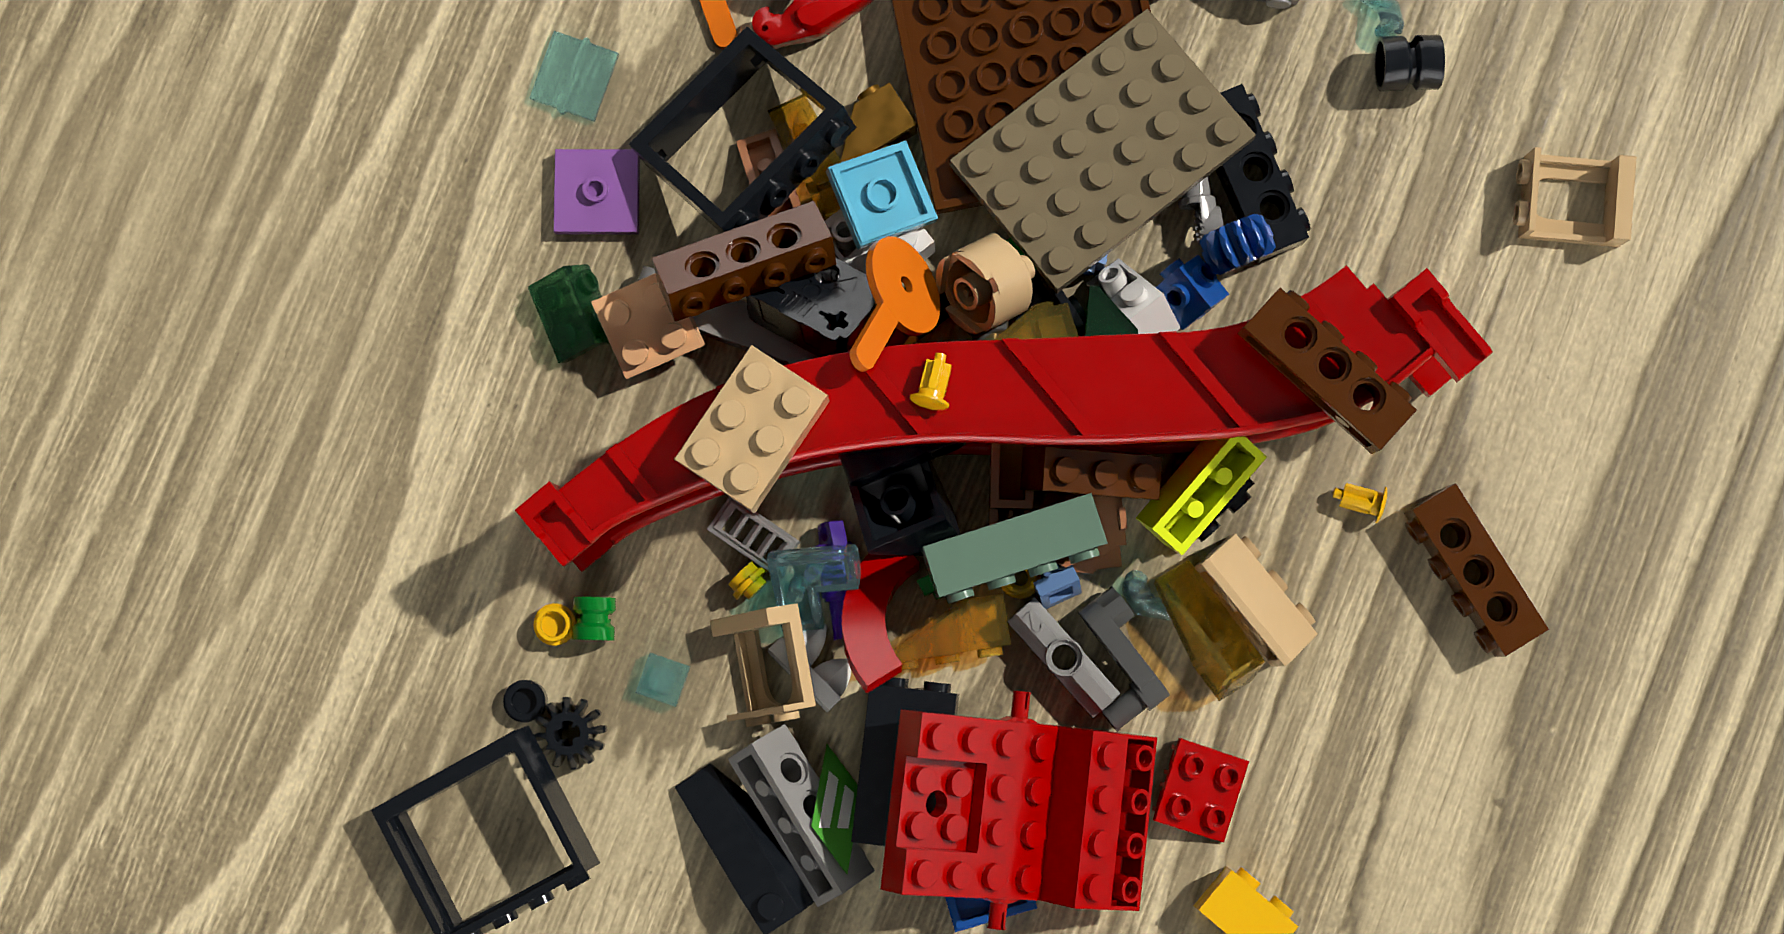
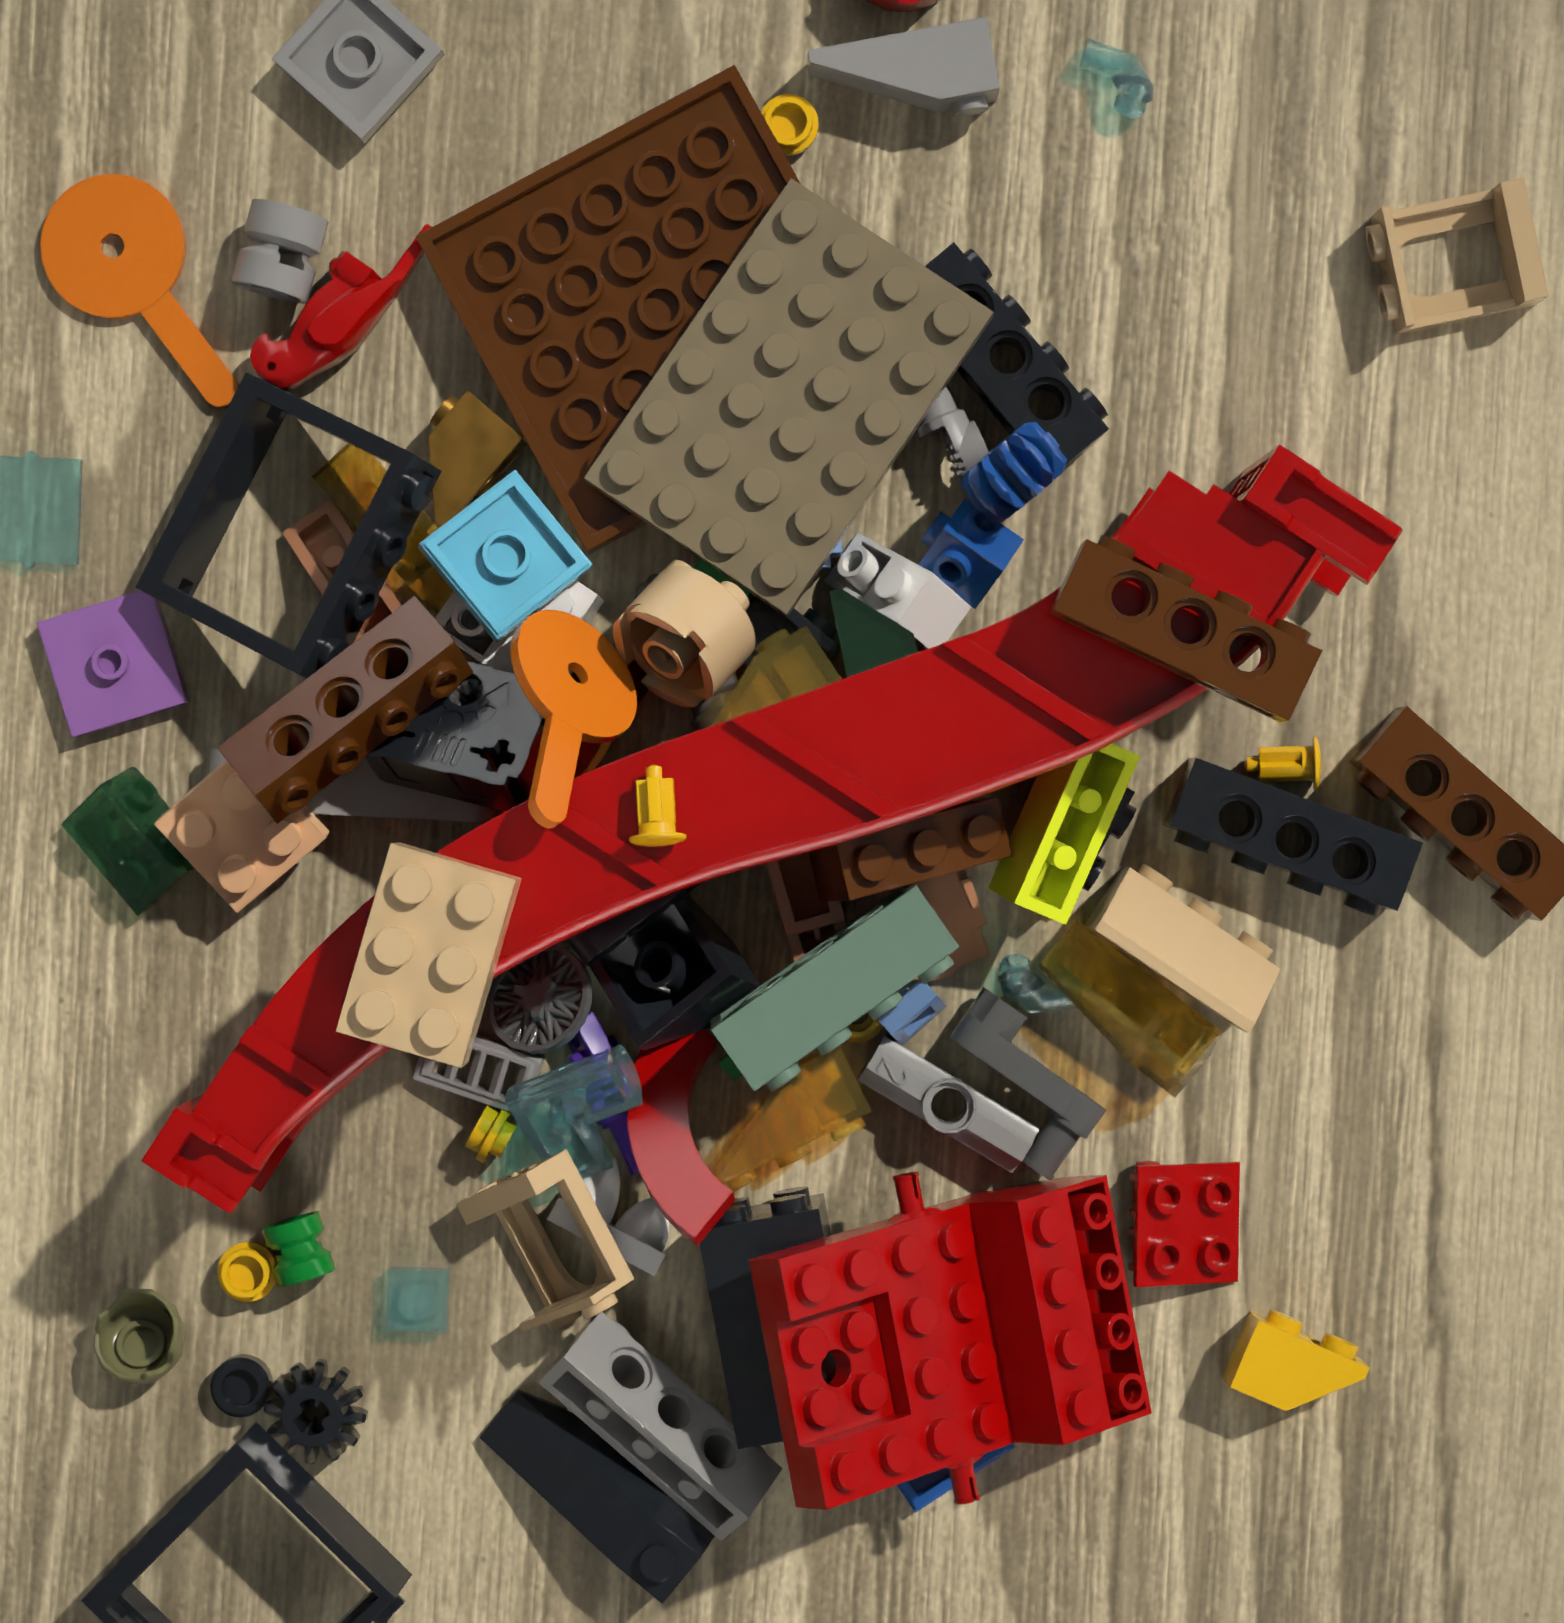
camera: 25 degrees left, 5 degrees up
(468, 644) = (139, 1336): none -> olive hair
(810, 502) = (541, 1001): none -> dark grey wheel
(835, 808) = (703, 1403): bright green sticker -> none
(1409, 578) = (1384, 855): none -> black brick
(1411, 62) = (1174, 139): black wheel -> none

